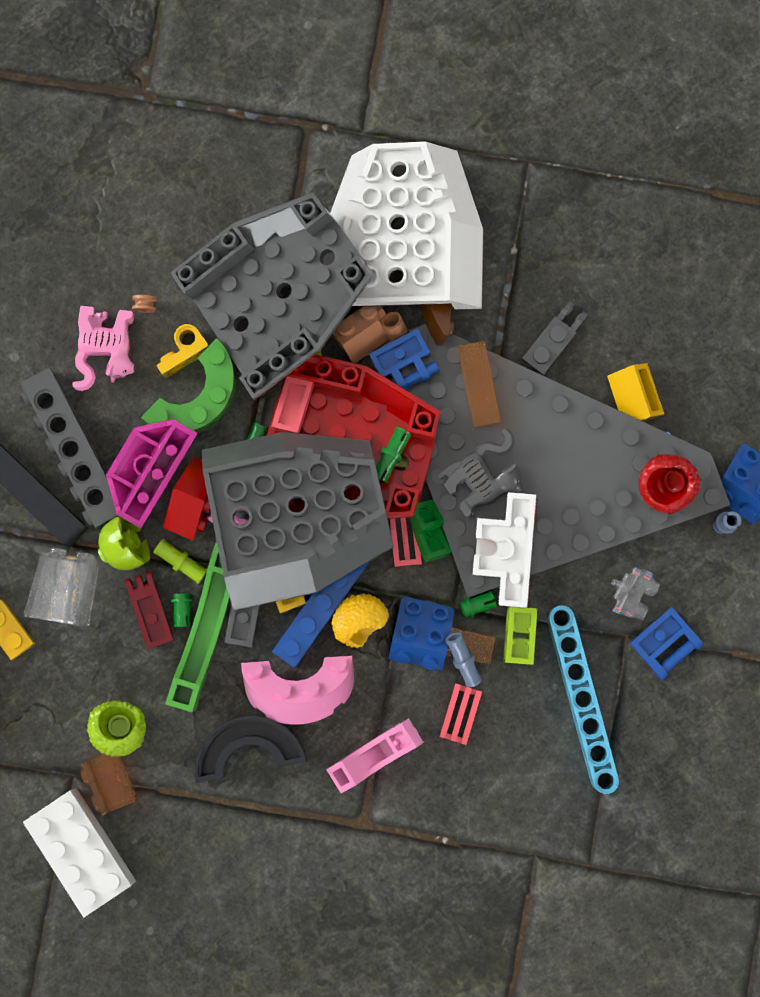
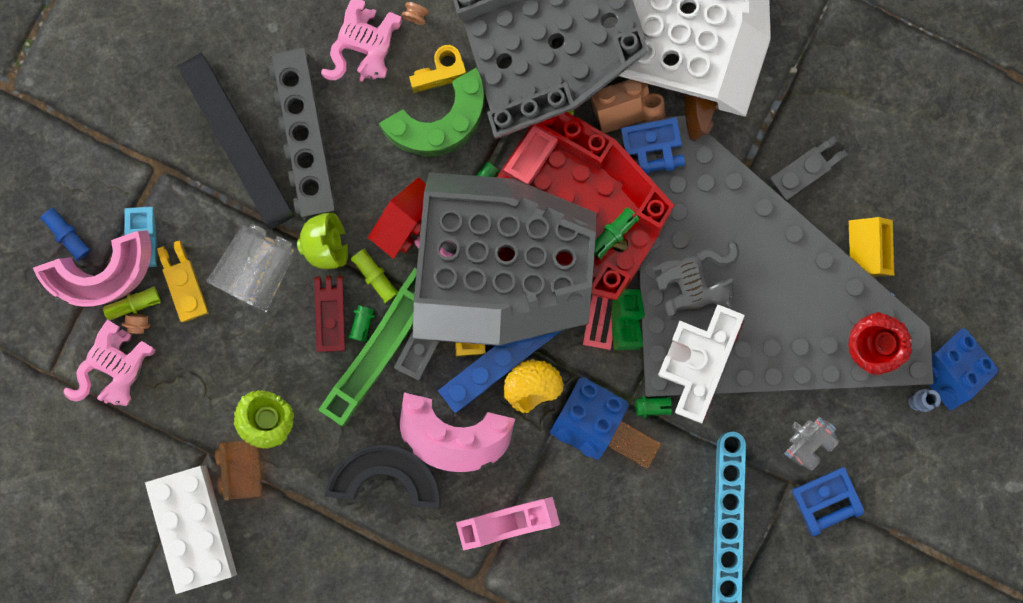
camera: 15 degrees right, 0 degrees up
(146, 467) = (370, 173): dark pink wedge -> none
(454, 736) = (617, 488): coral tile -> none
(463, 659) = (623, 456): sand blue pin -> none
(479, 384) = (720, 190): clear orange tile -> none
(520, 635) = (686, 449): lime brick -> none

